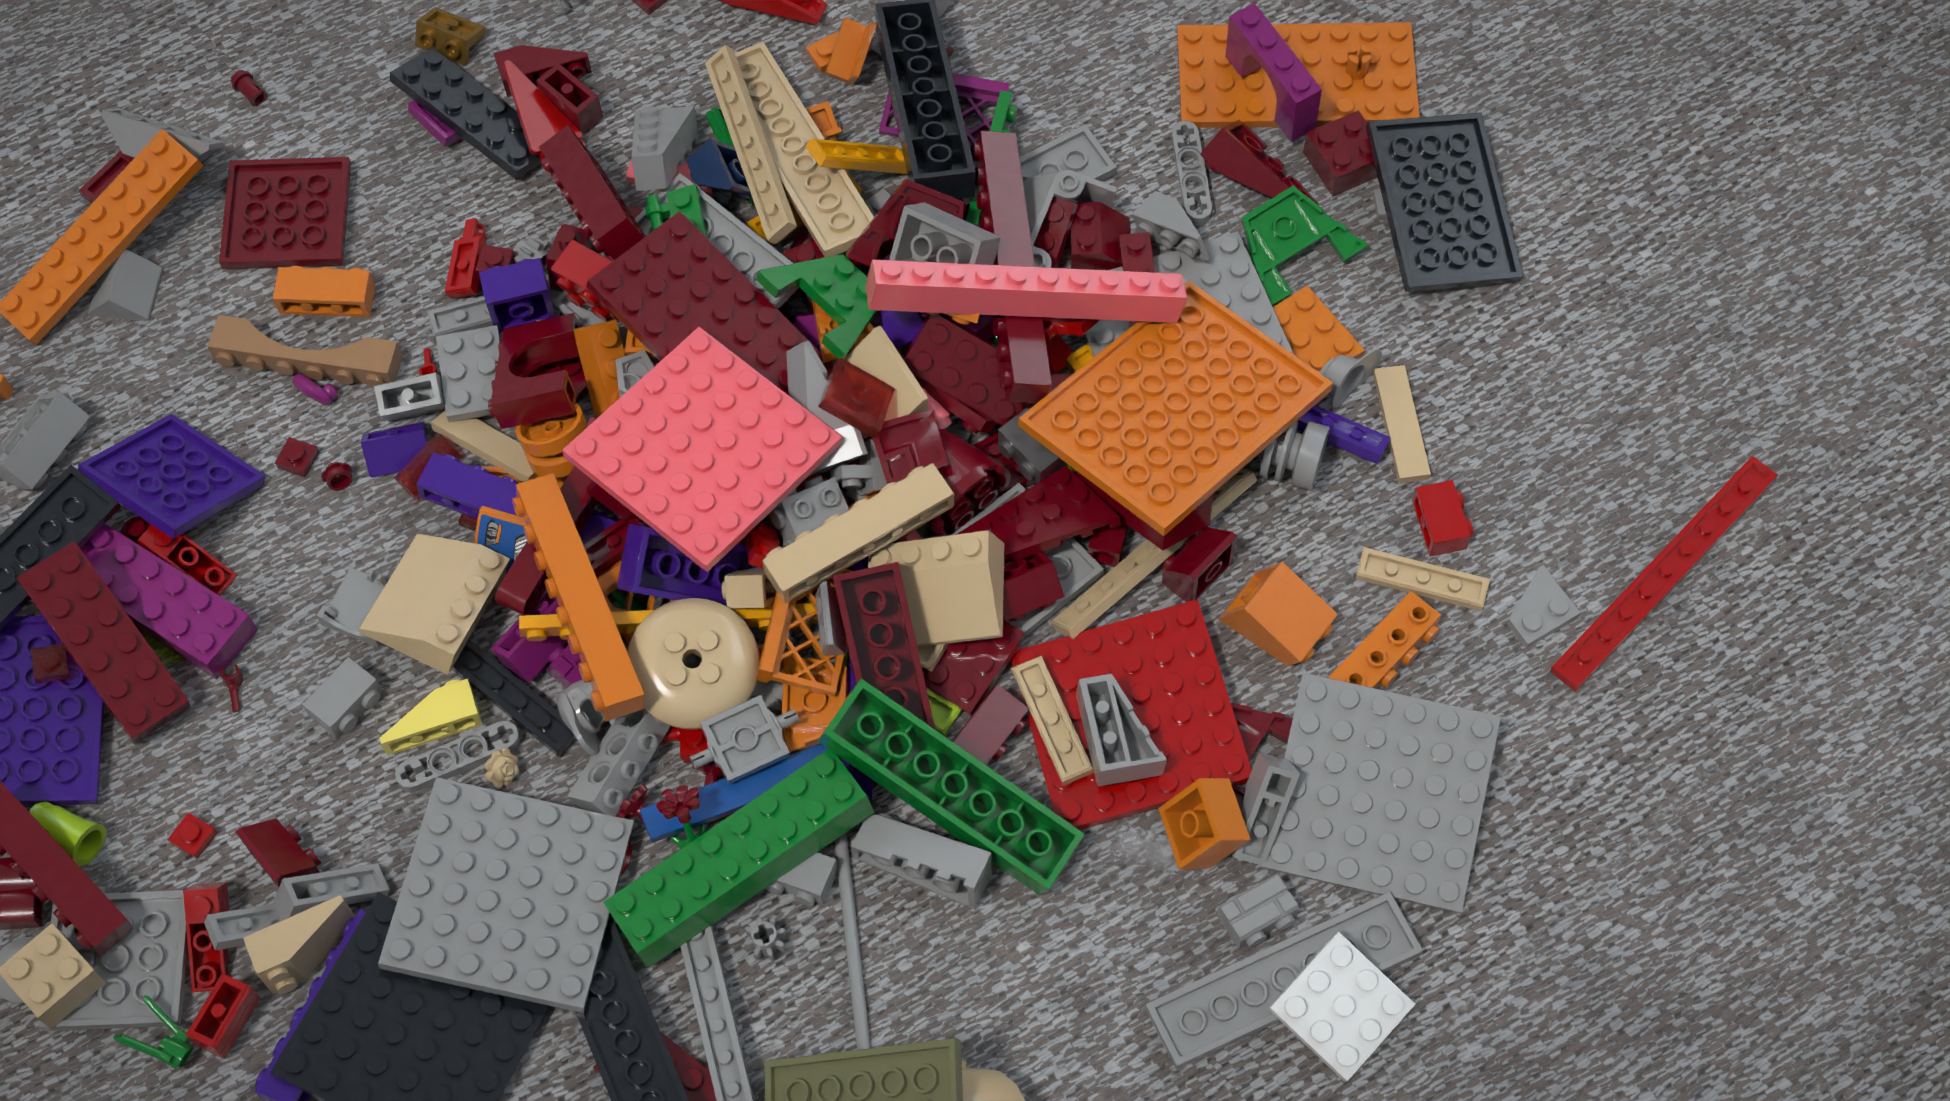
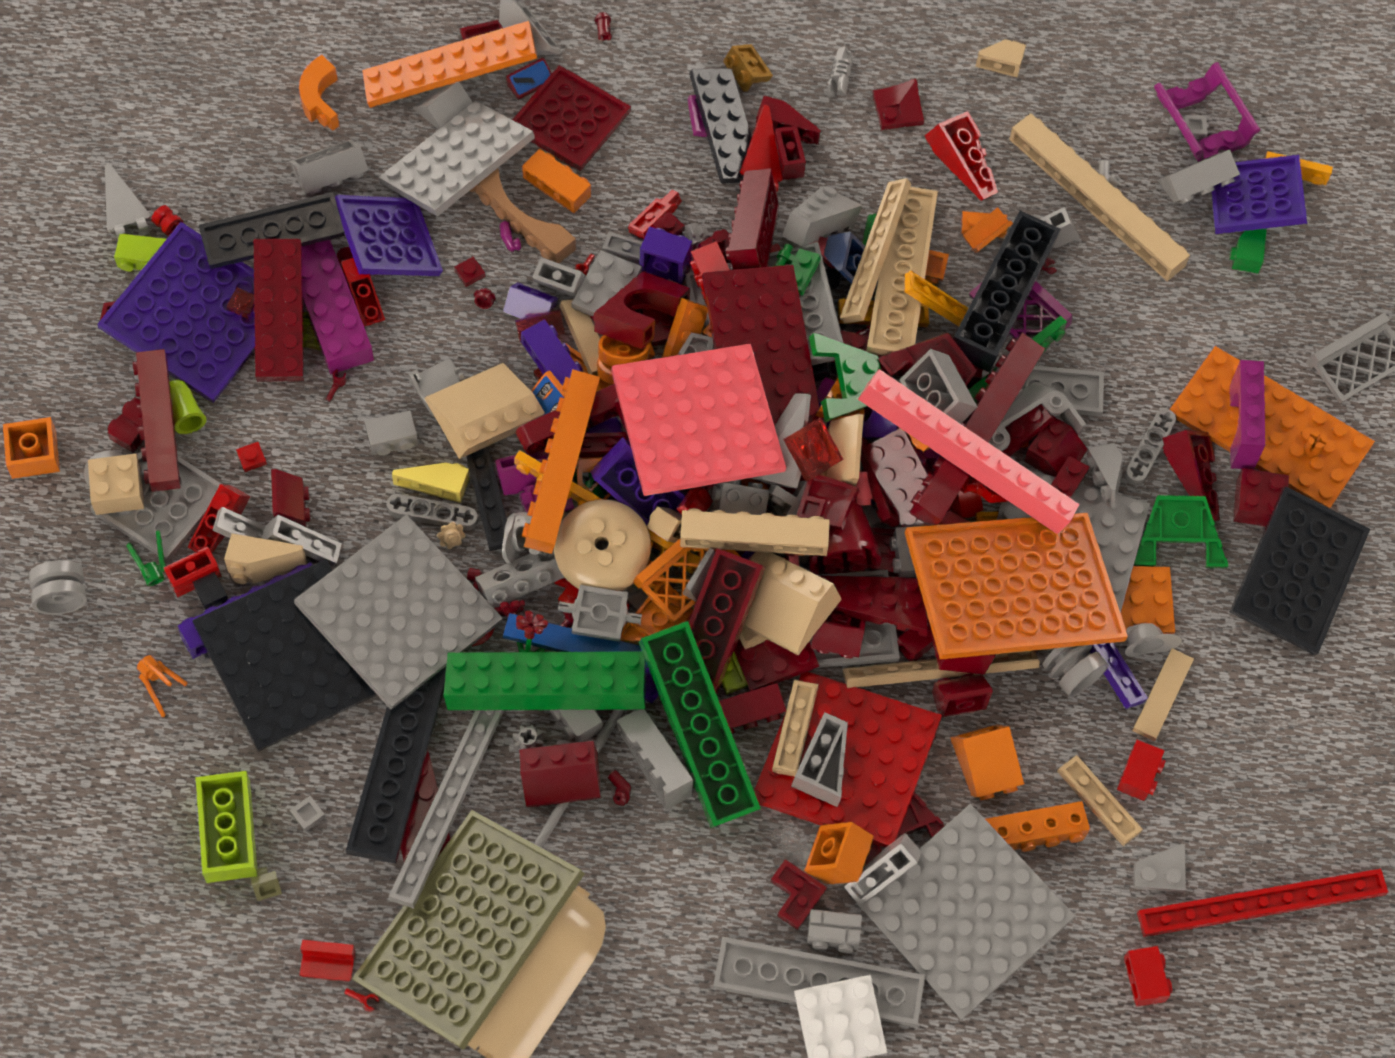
camera: 30 degrees right, 0 degrees up
(187, 337) = (456, 158): none -> light grey plate
(204, 198) = (528, 78): none -> slope
(262, 1024) = (210, 591): none -> black brick
(560, 796) = (472, 573): none -> dark red hand
(832, 950) = (560, 773): none -> dark red slope
(910, 918) = (623, 788): none -> dark red arm
(1194, 893) = (803, 893): none -> dark red plate
(1613, 729) = (1147, 976): none -> red brick

